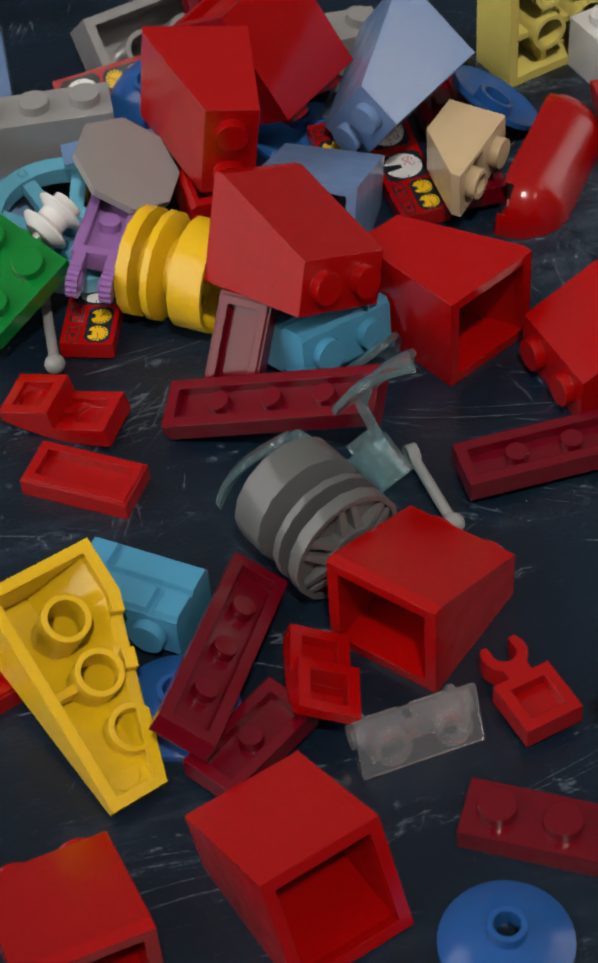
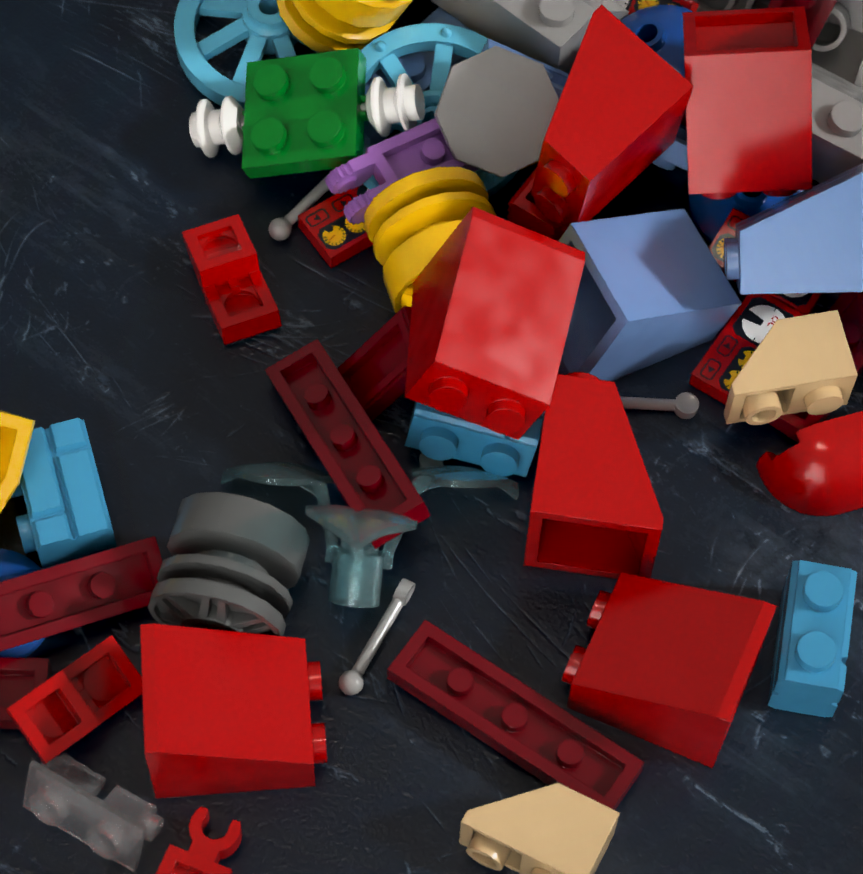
camera: 45 degrees right, 15 degrees up
(85, 479) = (170, 354): red tile -> none

